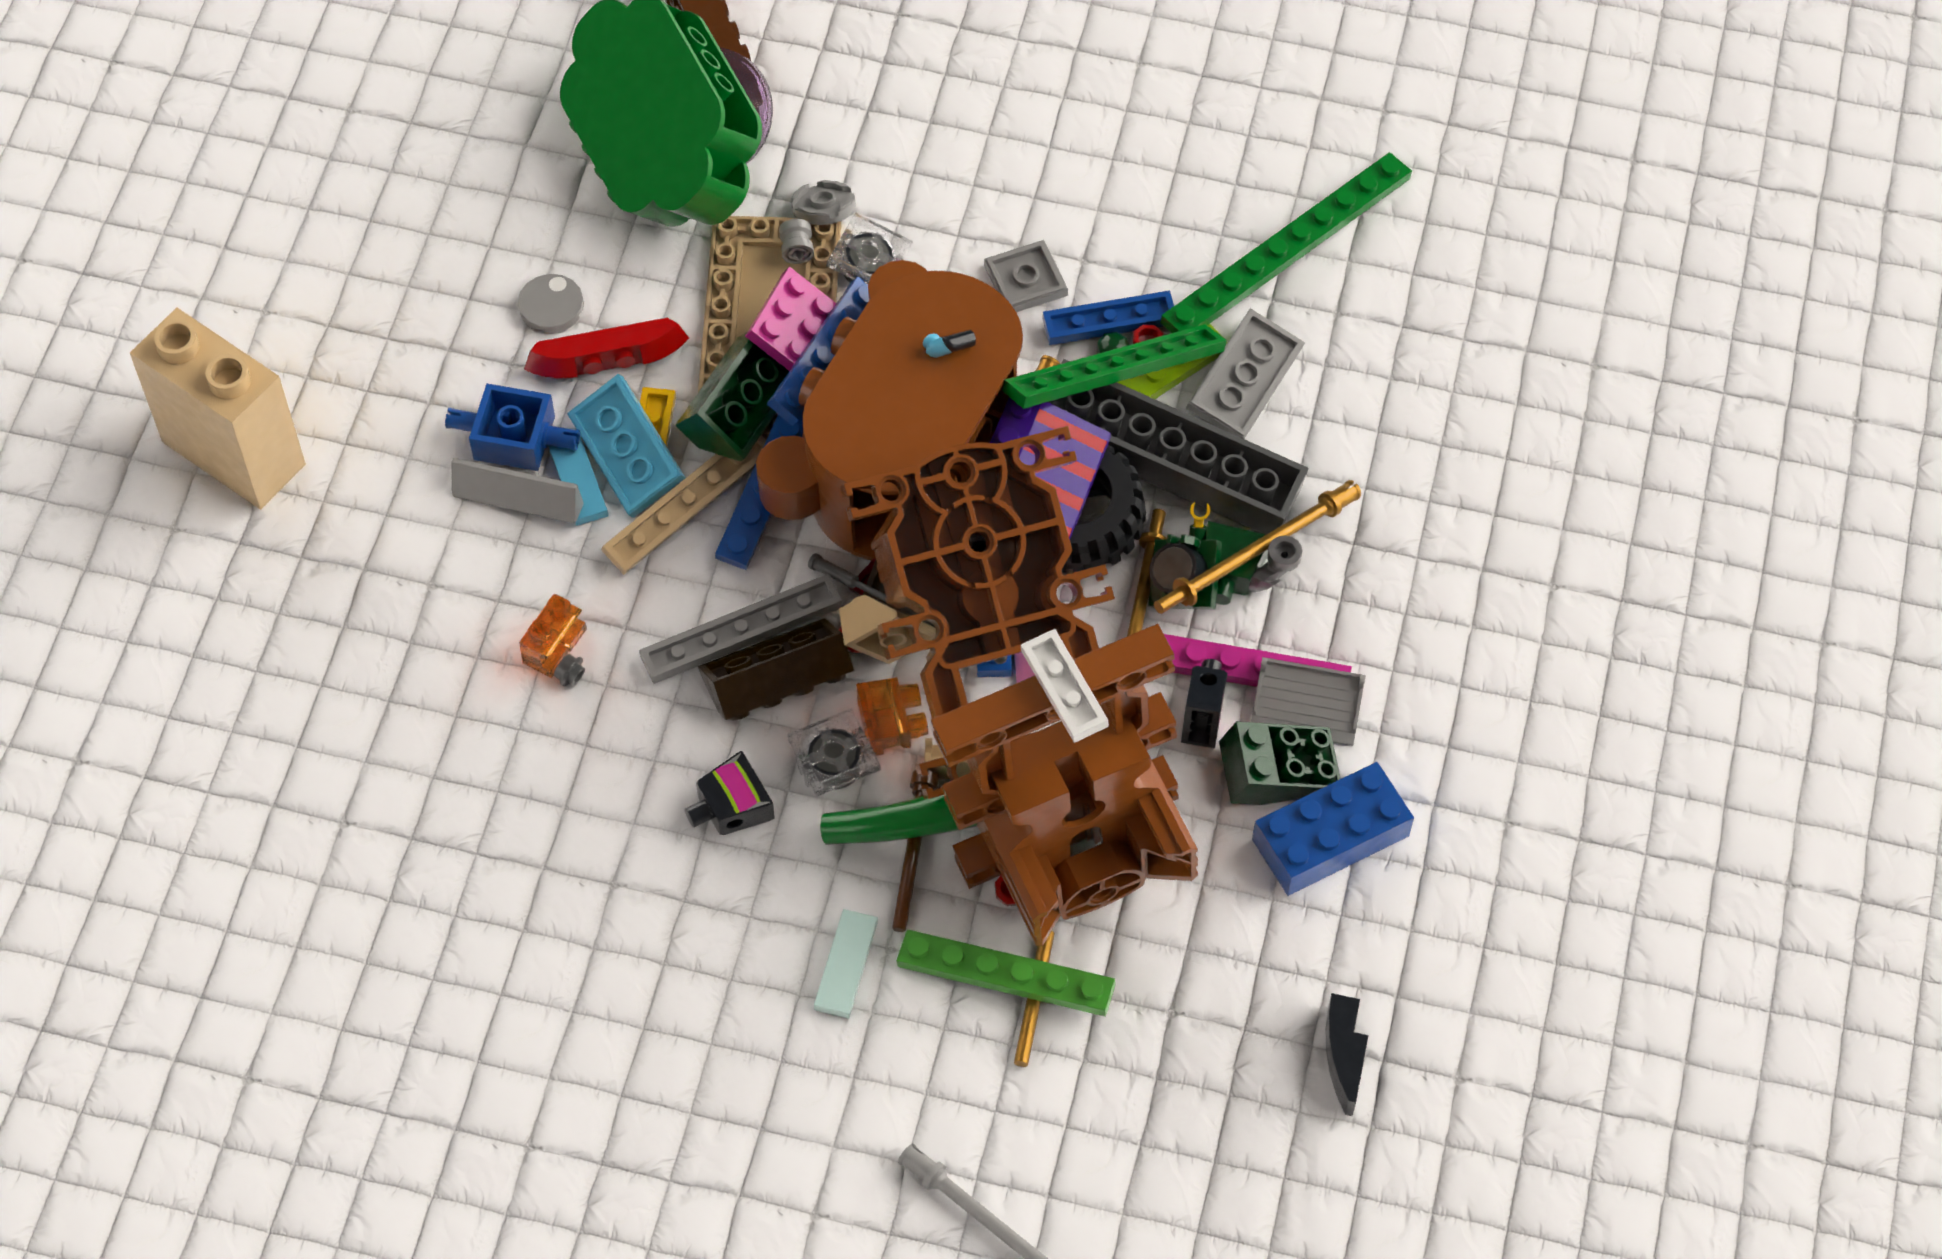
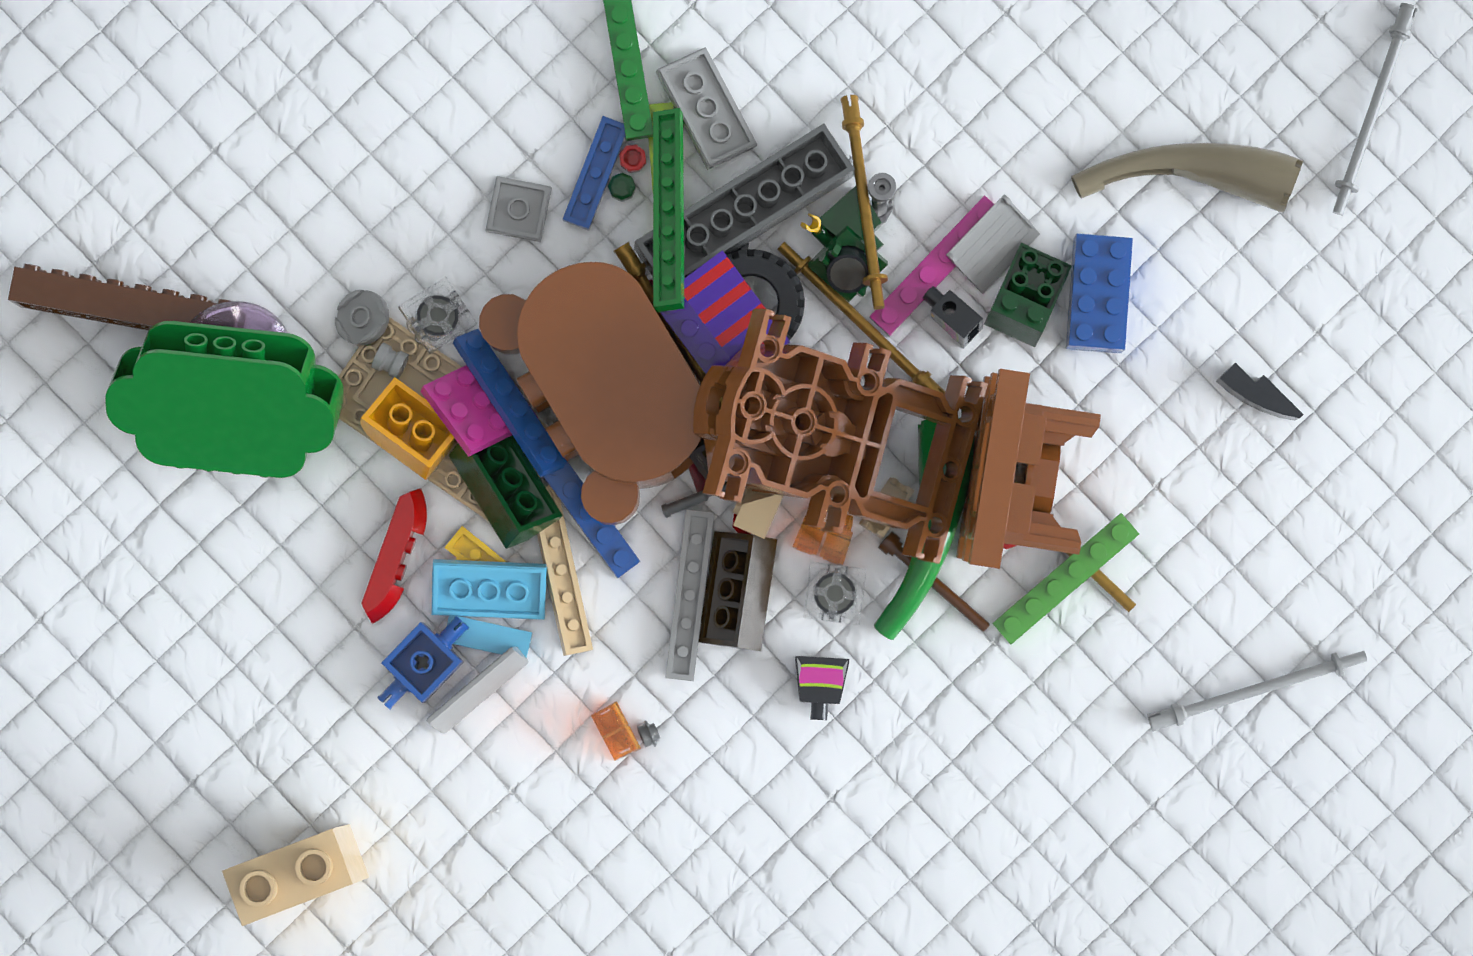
camera: 55 degrees left, 25 degrees up
(550, 303) = (321, 569): light grey tile -> none
(737, 281) = (408, 428): none -> light orange brick
(846, 963) = (989, 678): light aqua tile -> none
(941, 346) = (606, 327): arm -> none
(1064, 685) = (1010, 463): white plate -> none
(1566, 886) = (1241, 170): none -> dark tan brick
(1838, 967) = (1399, 32): none -> light grey bar

